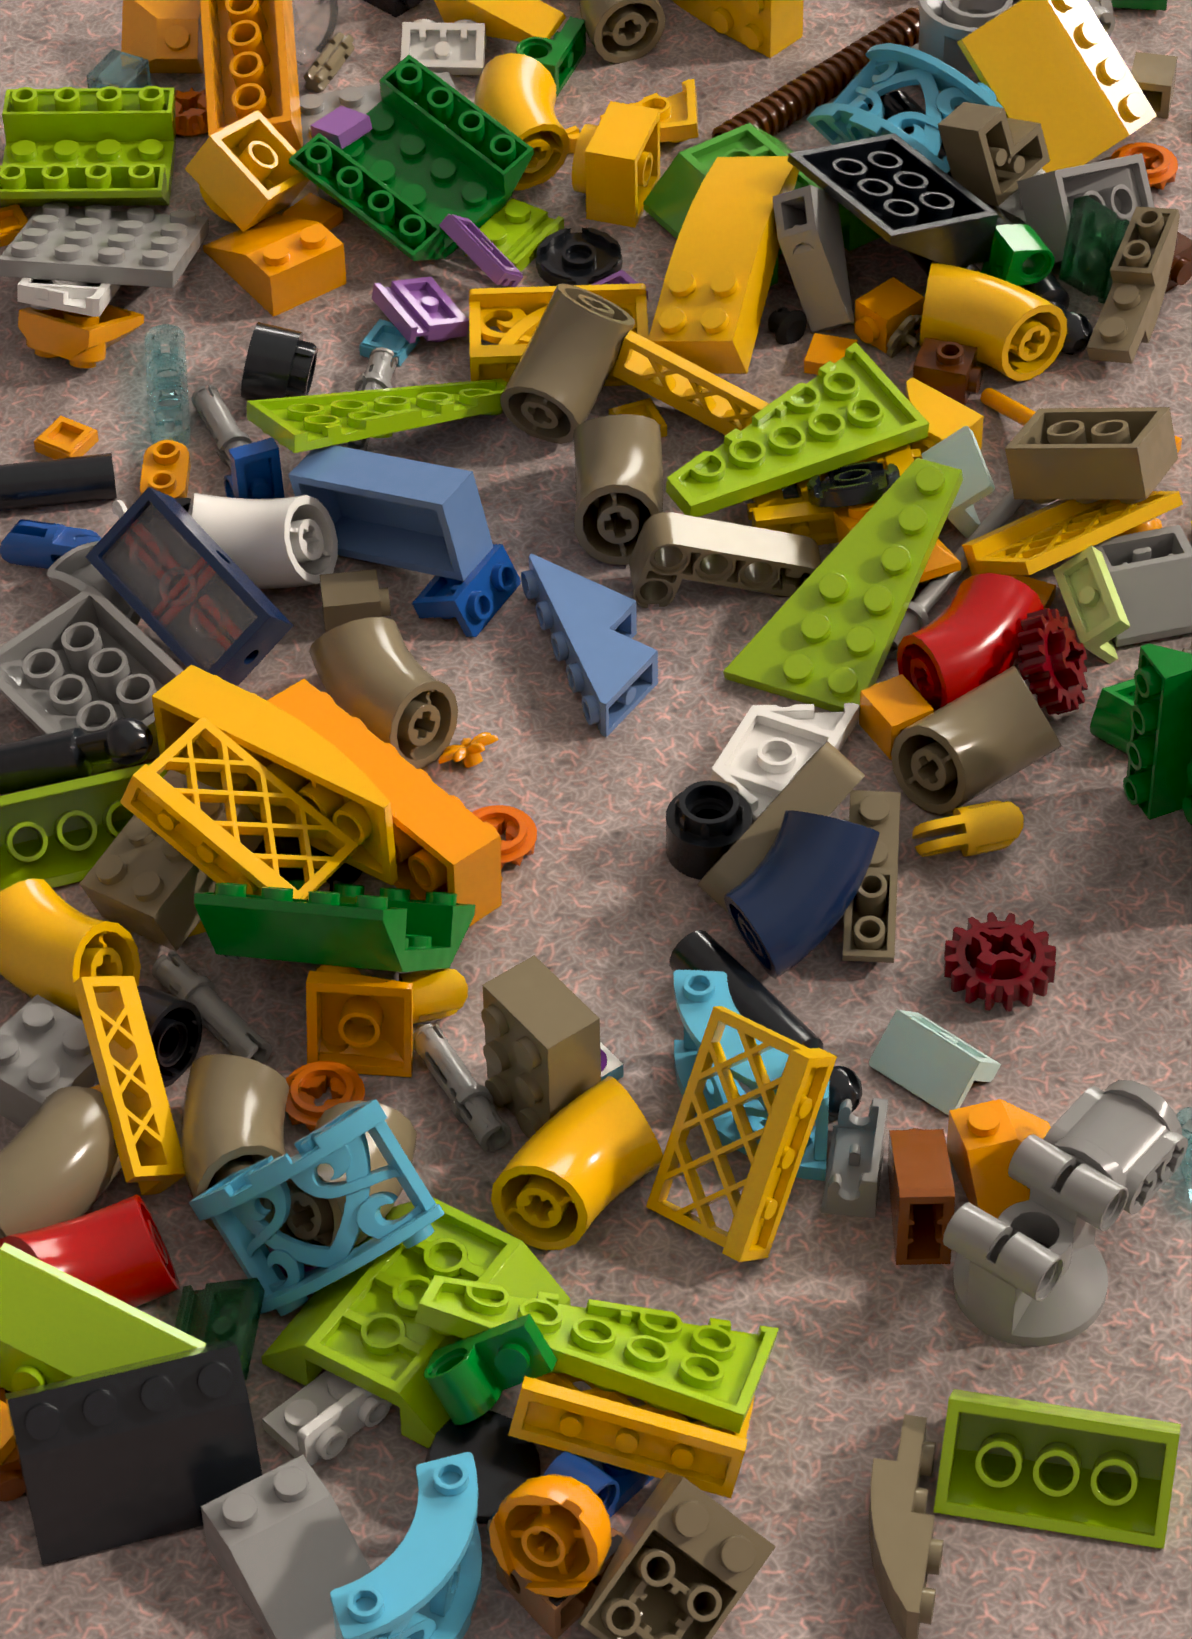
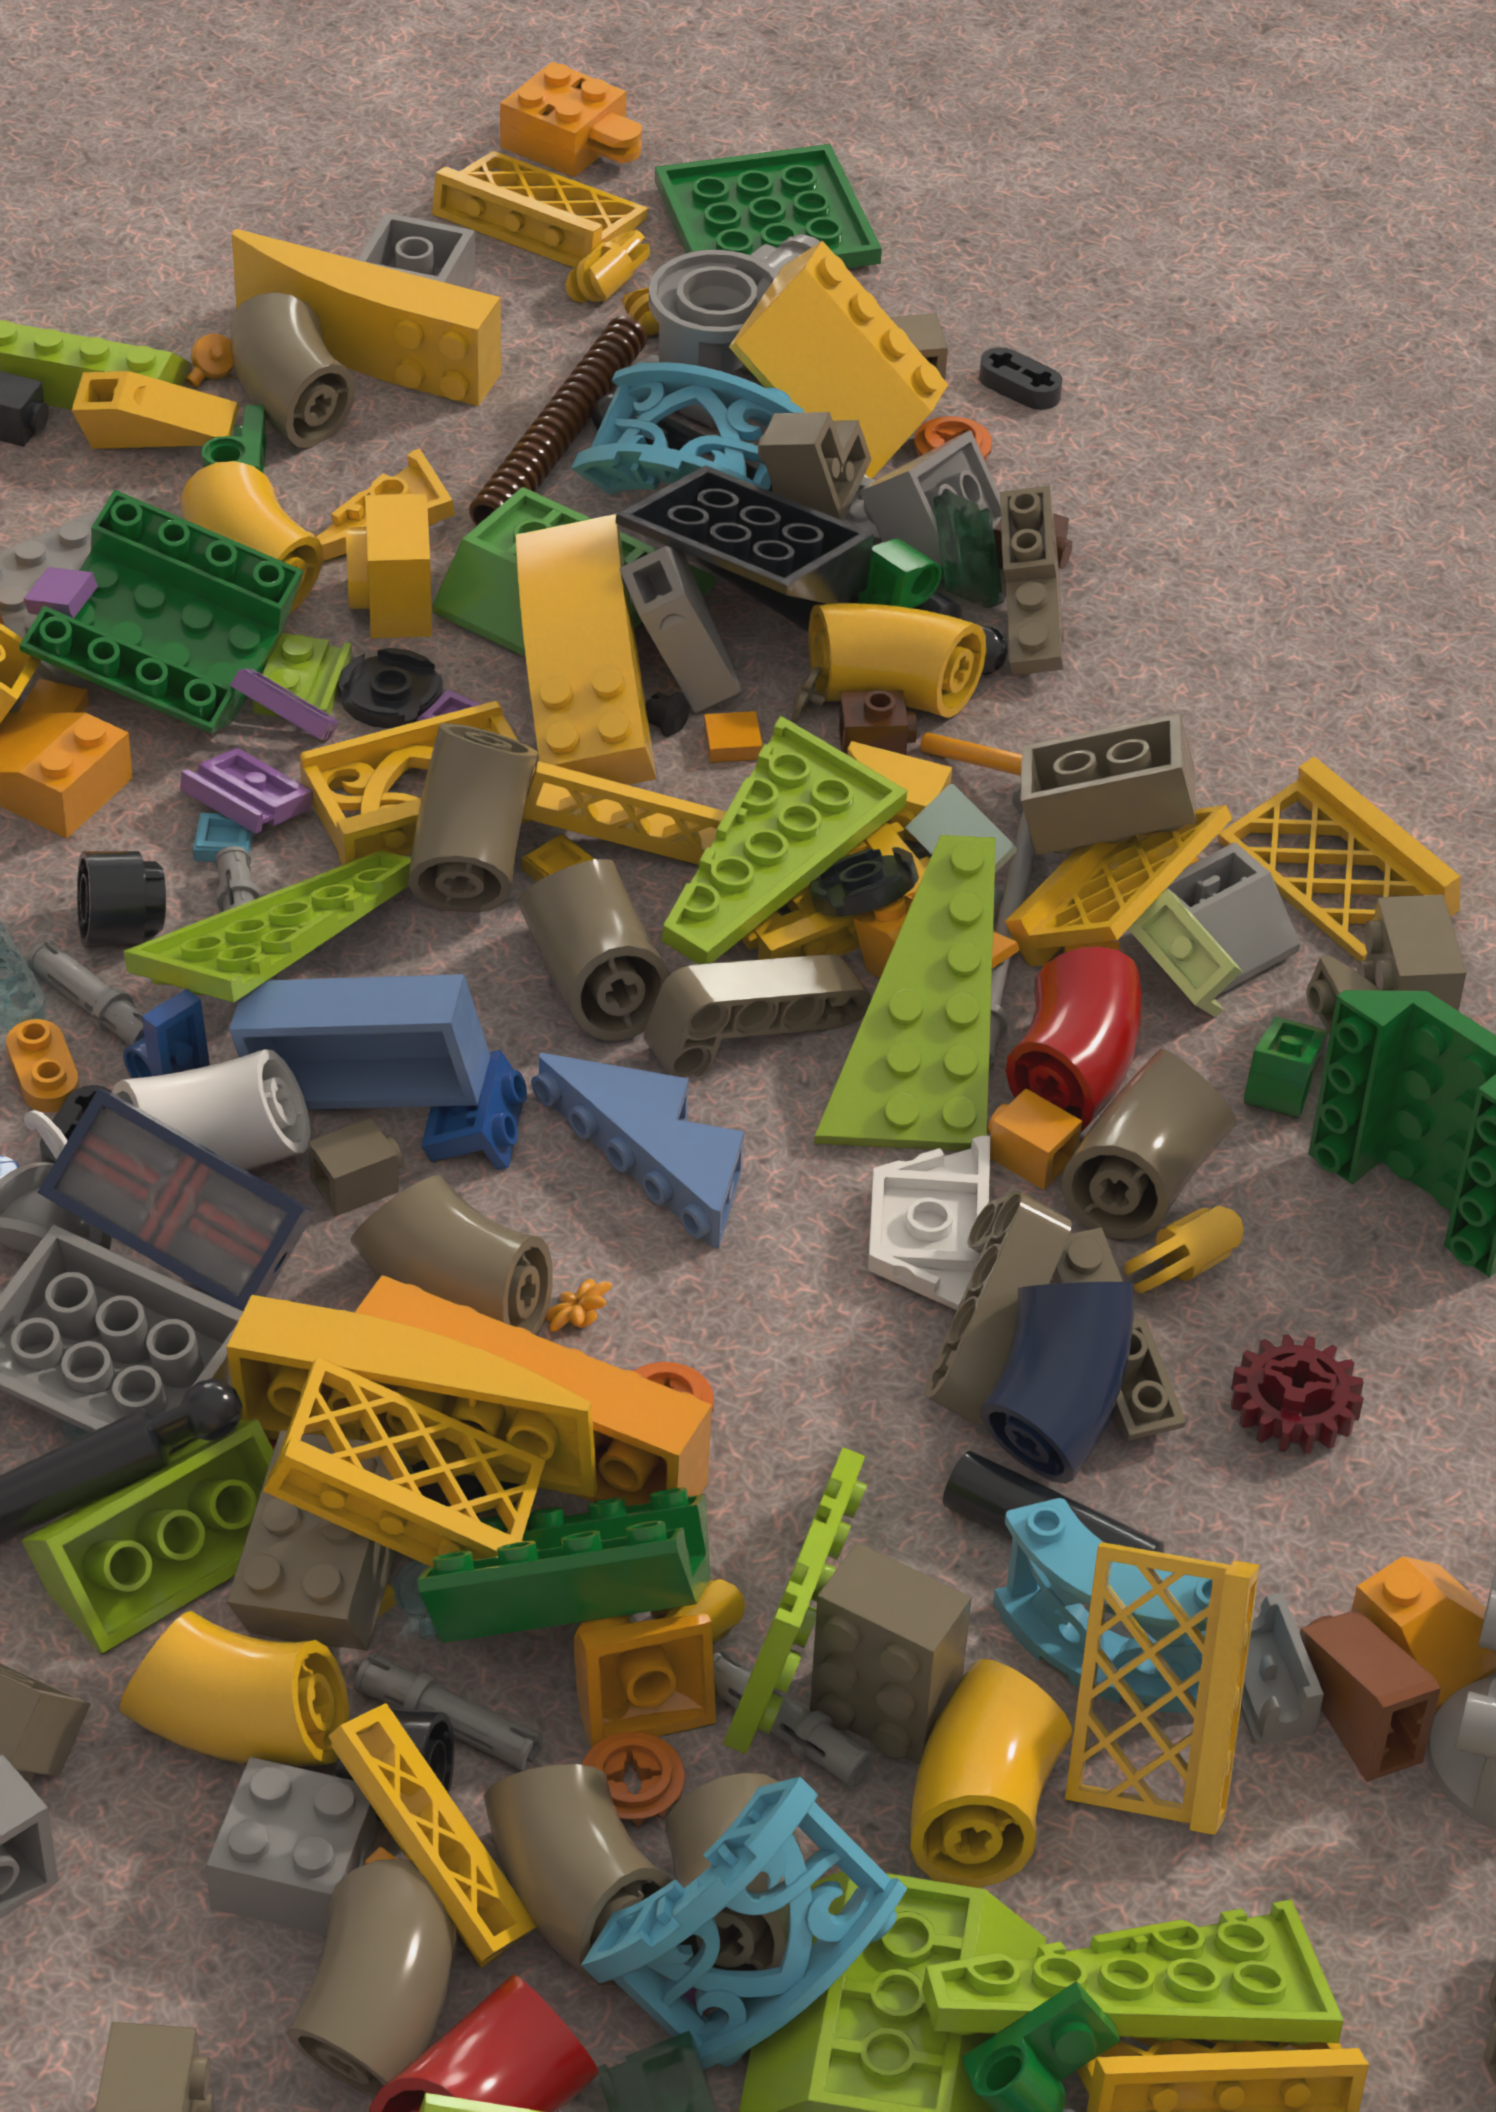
camera: 25 degrees left, 0 degrees up
(446, 46) = (93, 471): white bracket -> none
(449, 1017) = (794, 1616): none -> lime wing
(704, 826) = (902, 1328): black piece -> none
(883, 310) = (775, 673): light orange brick -> none
(930, 1061) = (1284, 1533): light aqua panel -> none
(1052, 661) = (1178, 1024): dark red gear -> none

